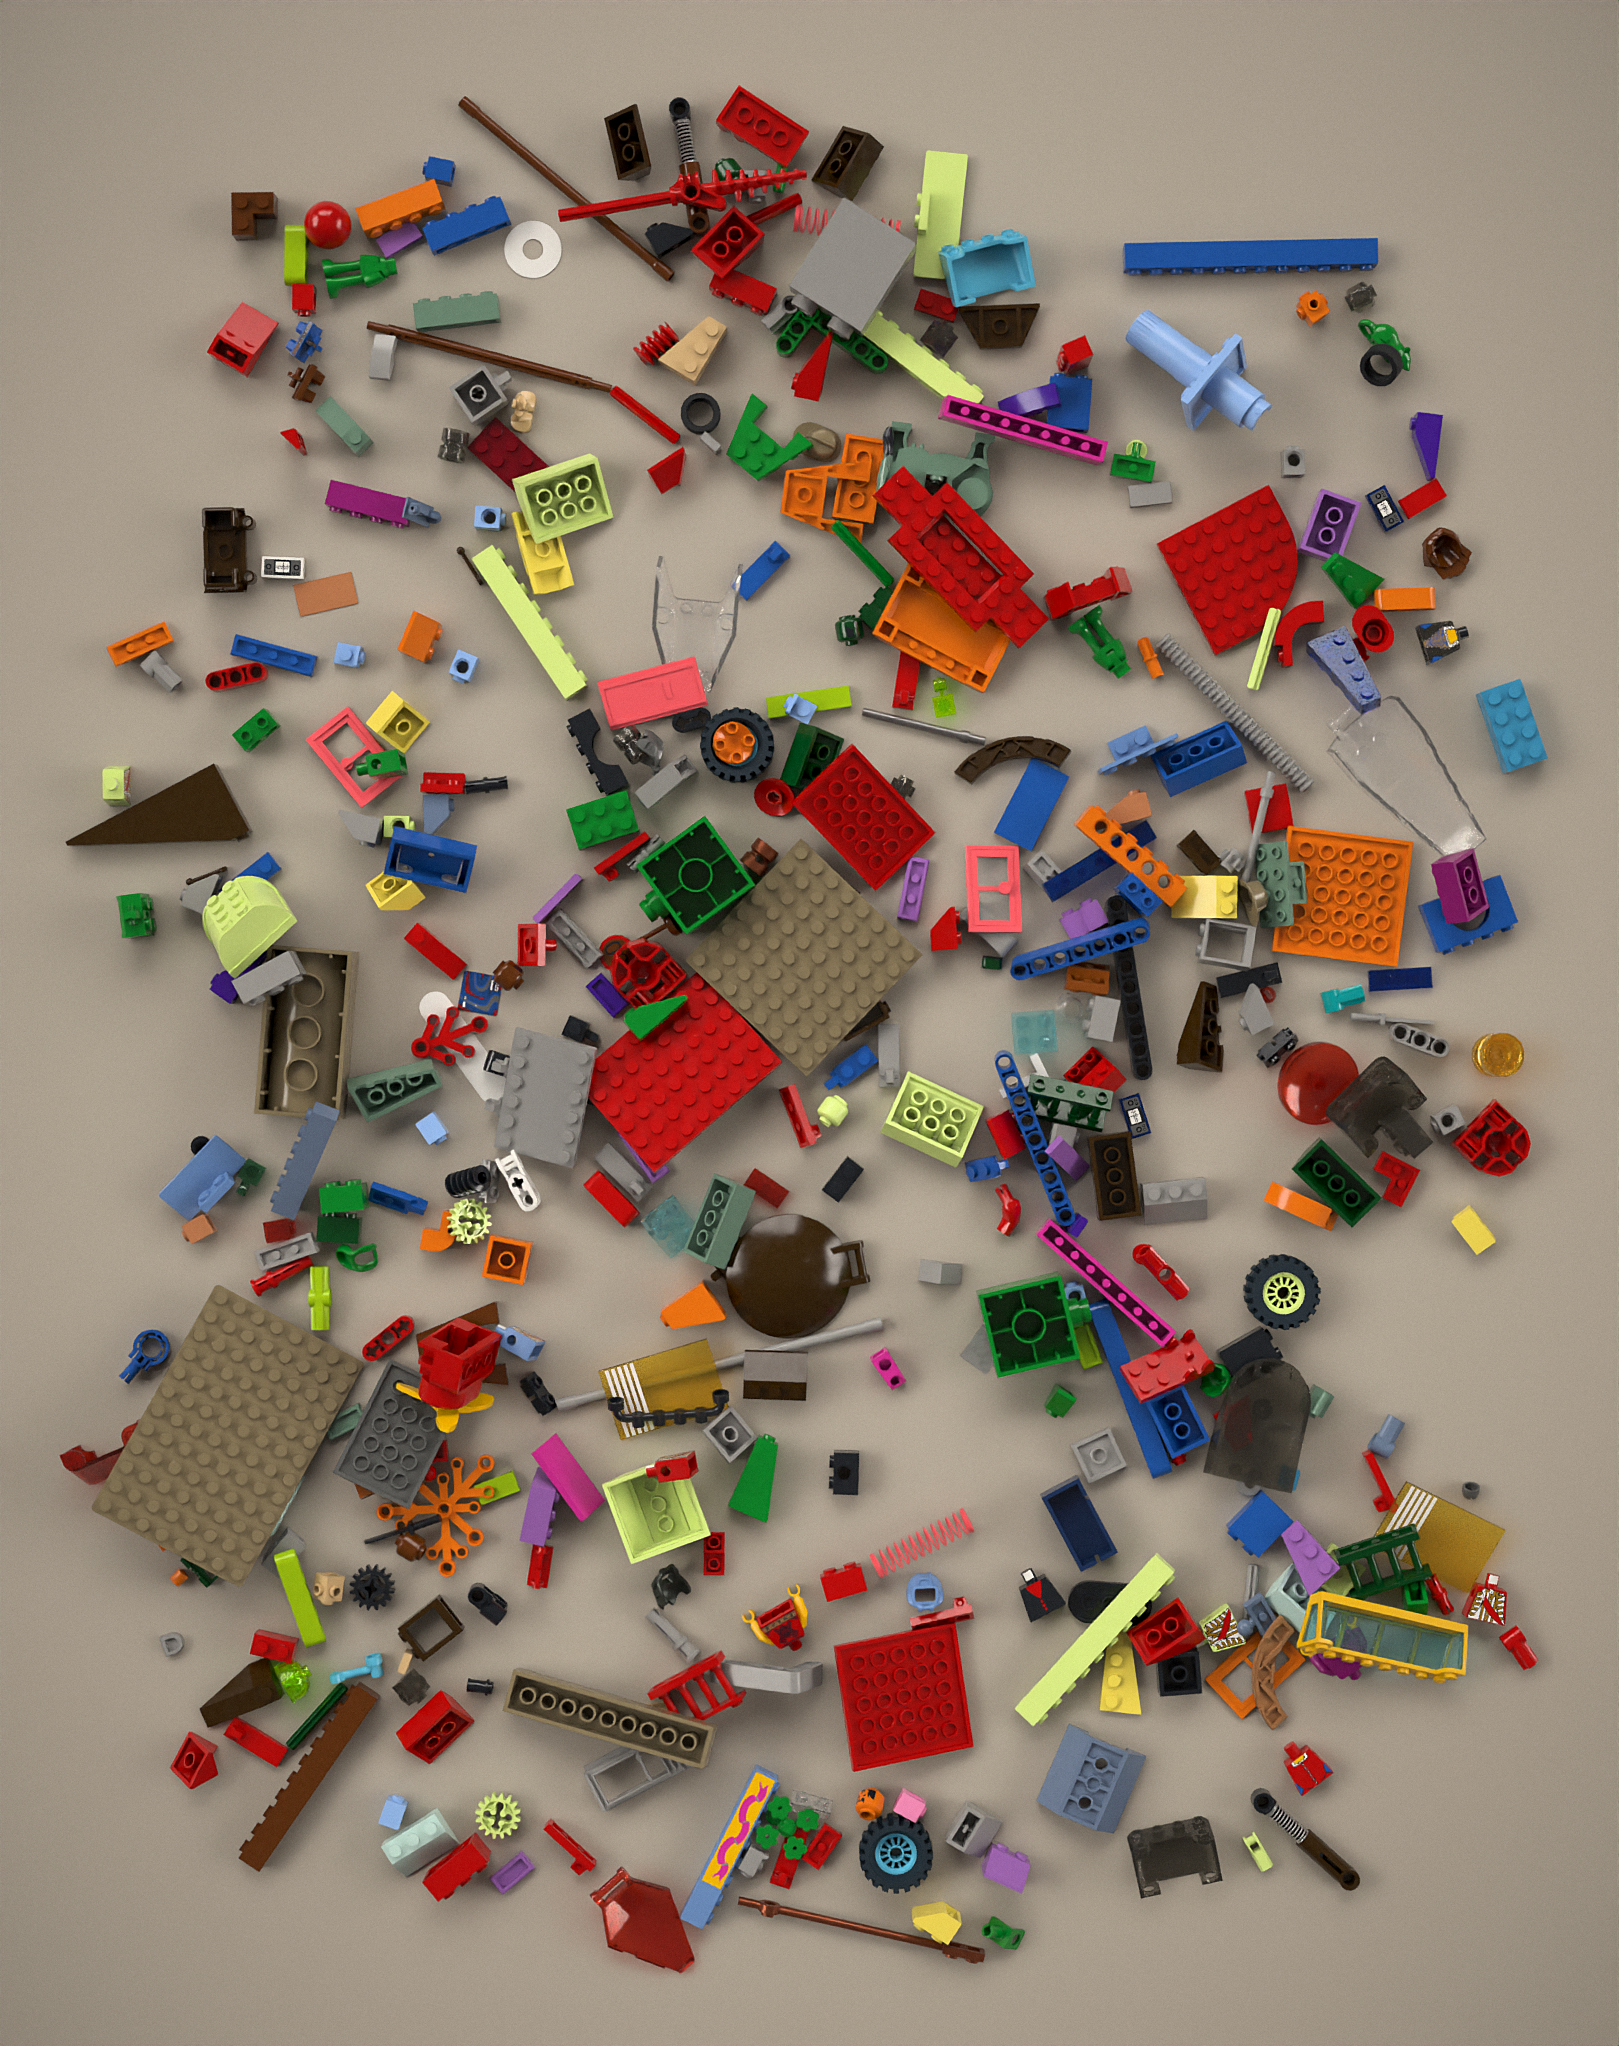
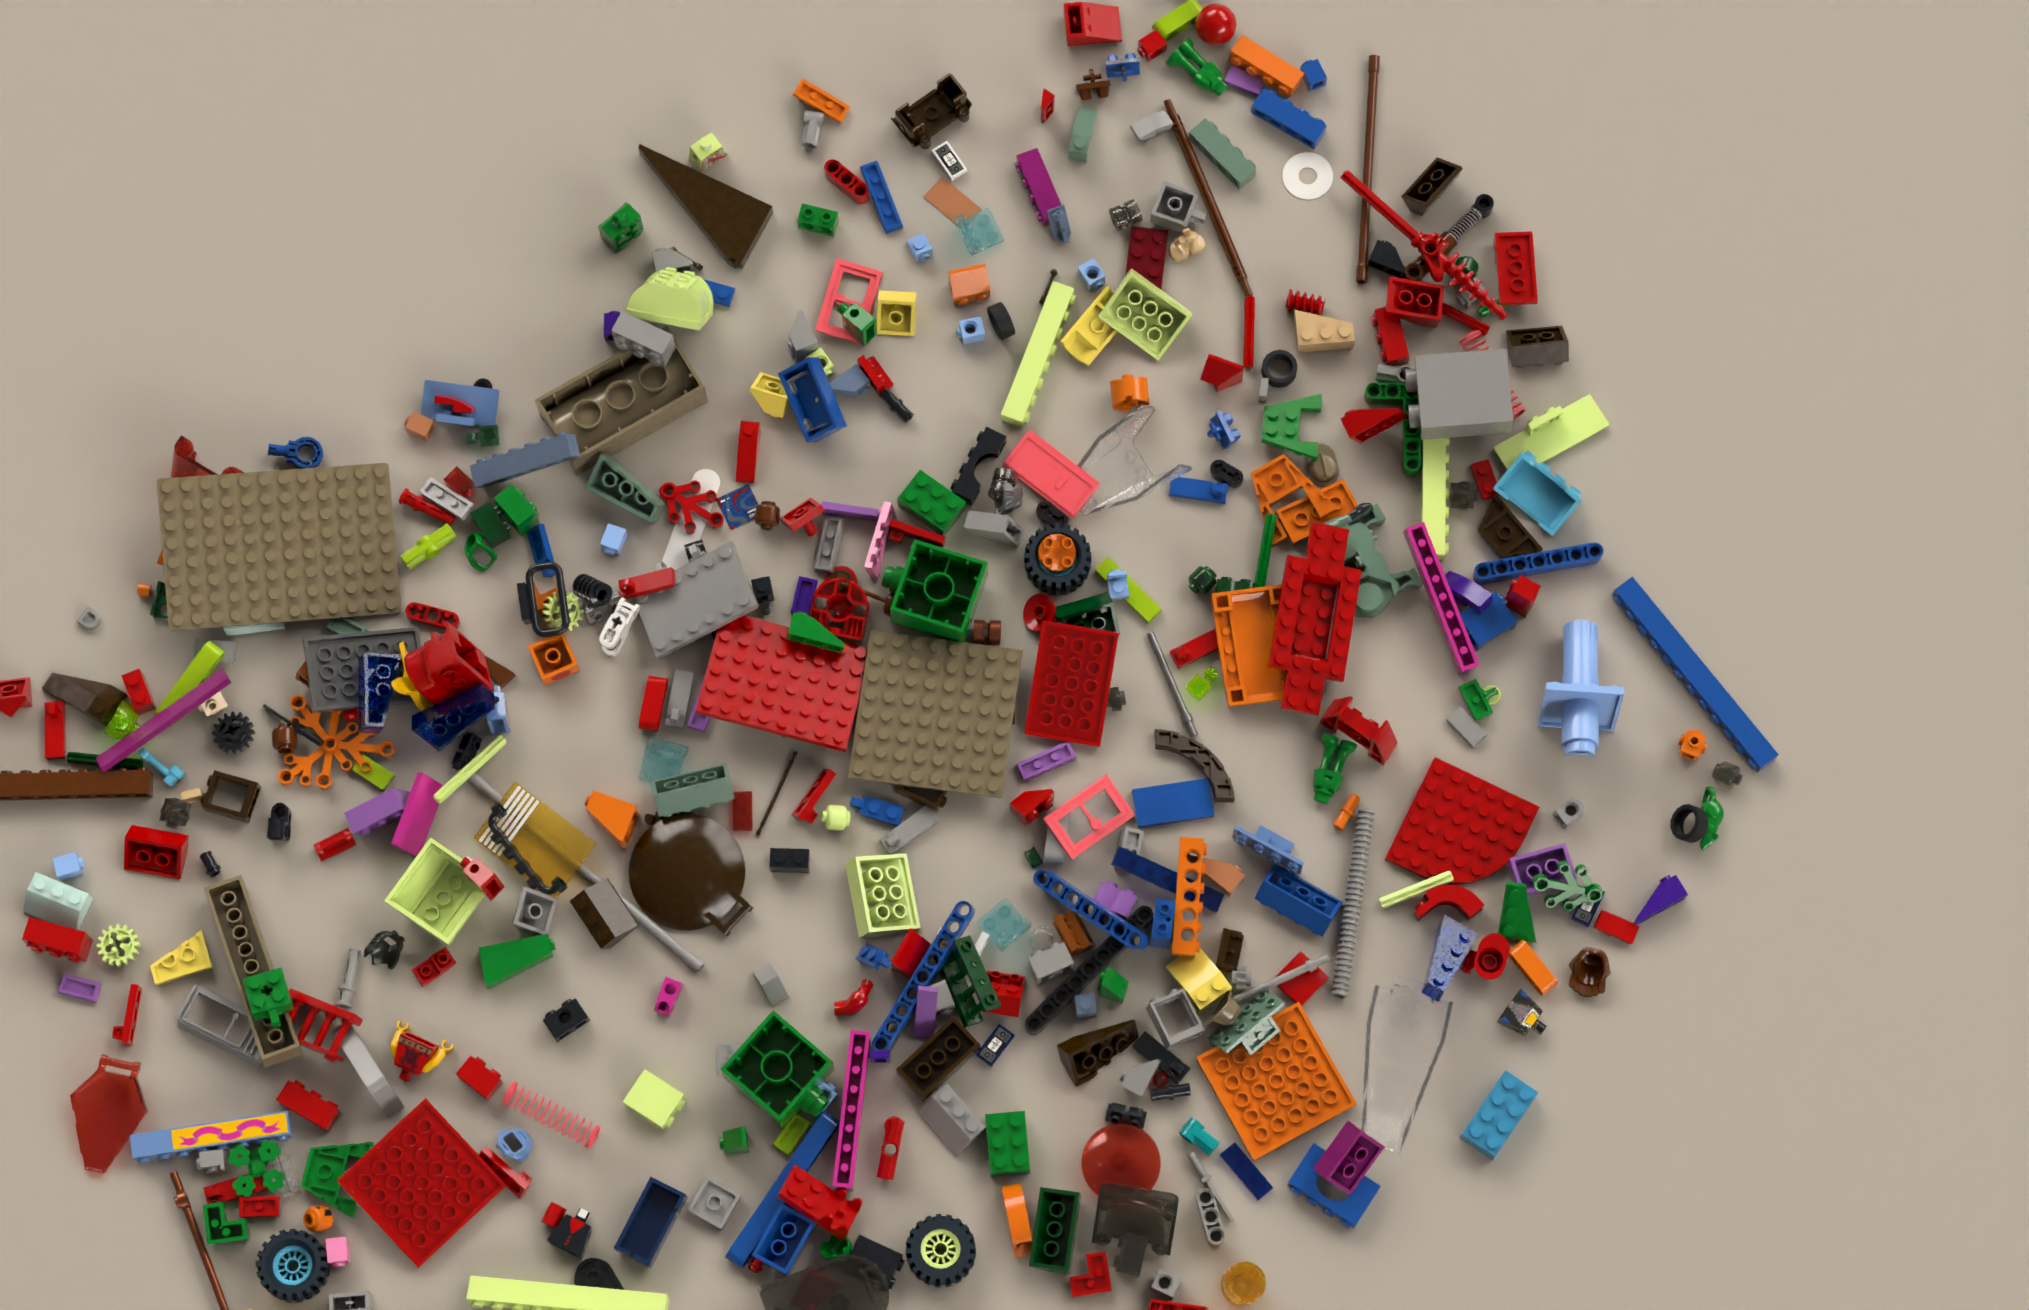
camera: 55 degrees right, 15 degrees down
(206, 1180) = (458, 404): none -> red slope
(319, 1643) = (163, 720): none -> magenta tile
(372, 590) = (979, 231): none -> clear light blue bracket
(422, 1436) = (375, 689): none -> clear blue wedge
(442, 1248) = (528, 600): none -> black bar
(475, 633) = (1001, 320): none -> black tyre
(497, 1129) = (647, 583): none -> red hinge
(501, 1387) = (453, 716): none -> clear blue wedge
(553, 1765) = (183, 961): none -> light yellow wing
(557, 1403) = (467, 771): none -> yellowish green axle
(608, 896) = (879, 541): none -> bright pink wing
(628, 567) = (1129, 392): none -> orange brick
(662, 1727) = (270, 1006): none -> green hinge
(721, 509) = (1221, 430): none -> blue hips
(762, 1745) = (309, 1105): none -> red brick
(766, 539) = (1224, 477): none -> black beam
(771, 1146) = (777, 792): none -> dark brown piece
(818, 1894) = (219, 1229): none -> green brick
(831, 1767) = (325, 1167): none -> green wing
(972, 1444) = (654, 1100): none -> yellowish green brick
(1010, 1600) = (553, 1215): none -> red piece
(1053, 308) = (1546, 559): none -> blue beam
(1158, 1014) = (1085, 1006): none -> sand blue brick
(1160, 979) = (1112, 985): none -> green slope
(1230, 1168) = (1007, 1143): none -> green brick
(1285, 994) = (1170, 1092): none -> black pin
(1379, 498) = (1569, 888): none -> green plant

